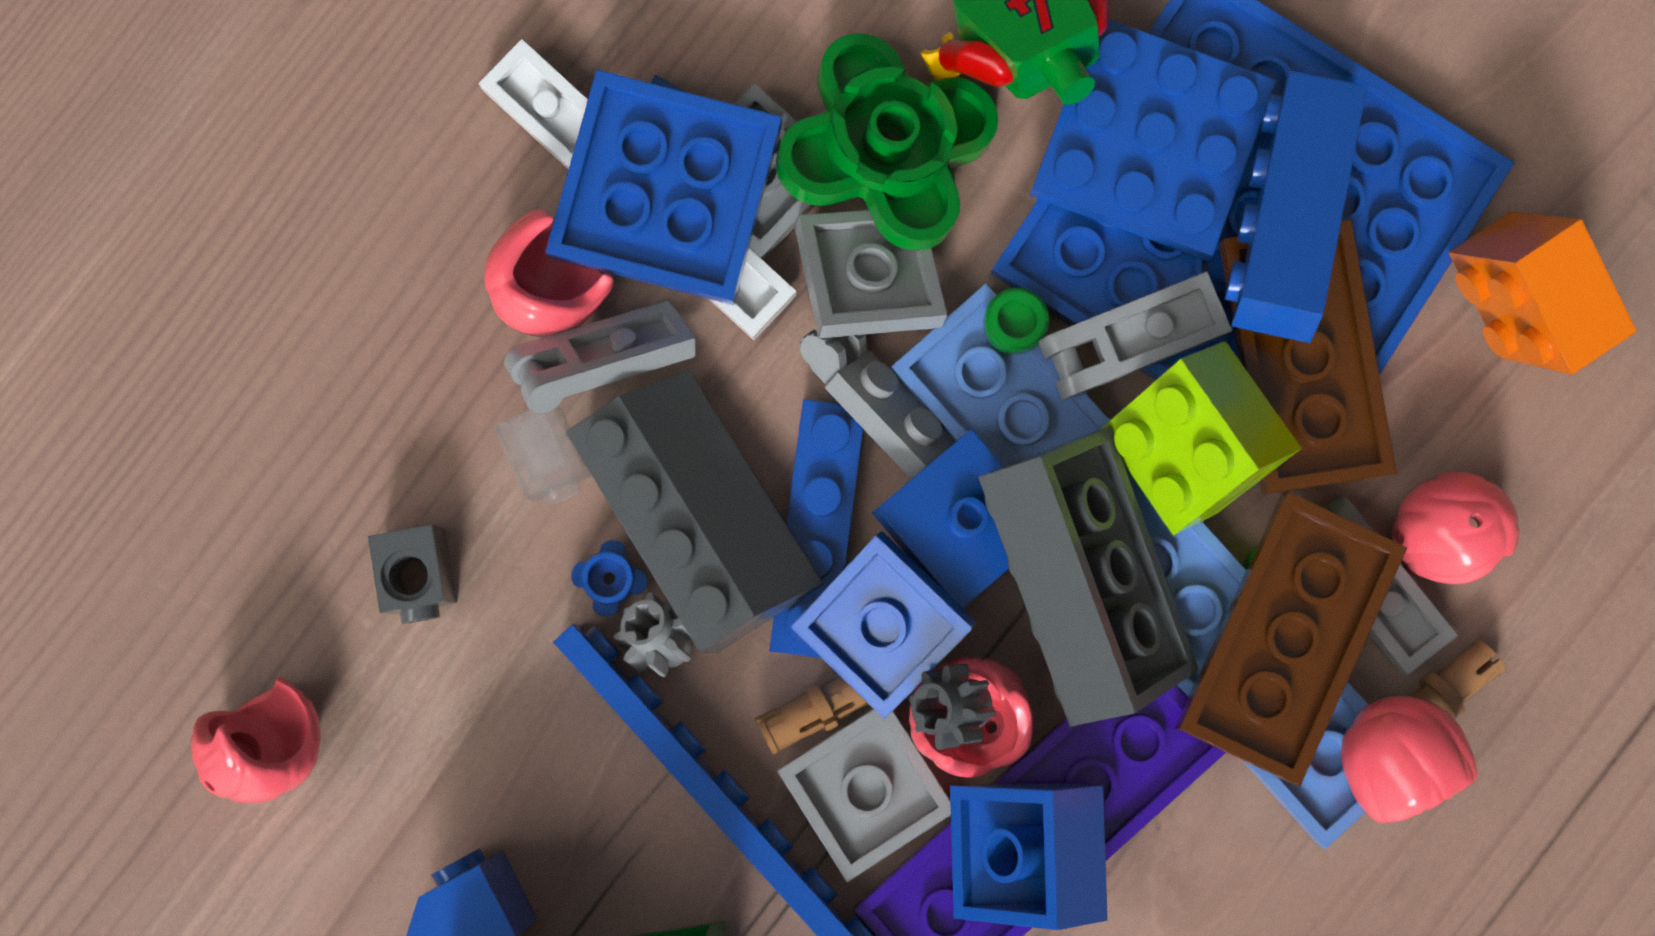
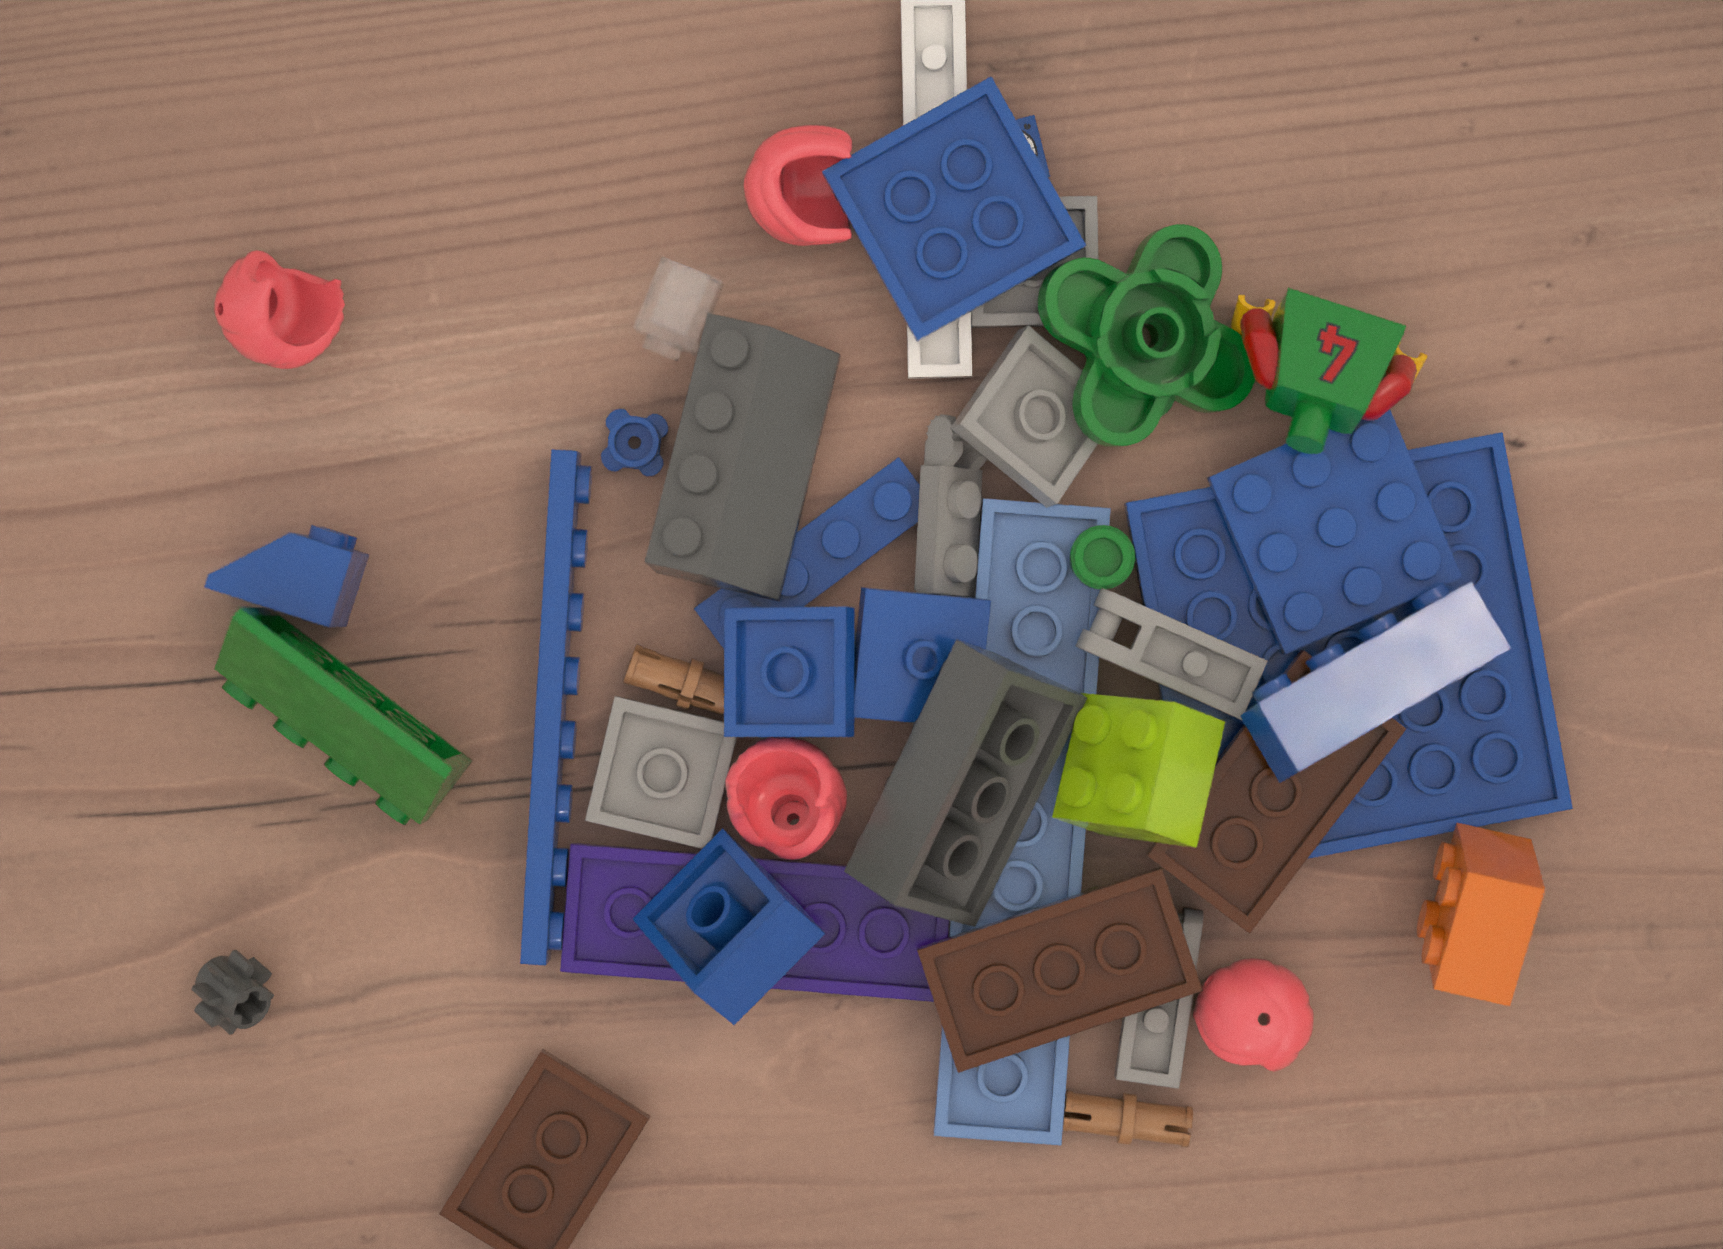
camera: 40 degrees right, 5 degrees up
(392, 552) = (502, 269): dark grey brick -> none
(598, 354) = (787, 280): light grey plate -> none
(653, 636) = (624, 516): light grey gear -> none
(952, 706) = (777, 774): dark grey gear -> none
(1405, 758) = (1048, 1125): coral piece -> none

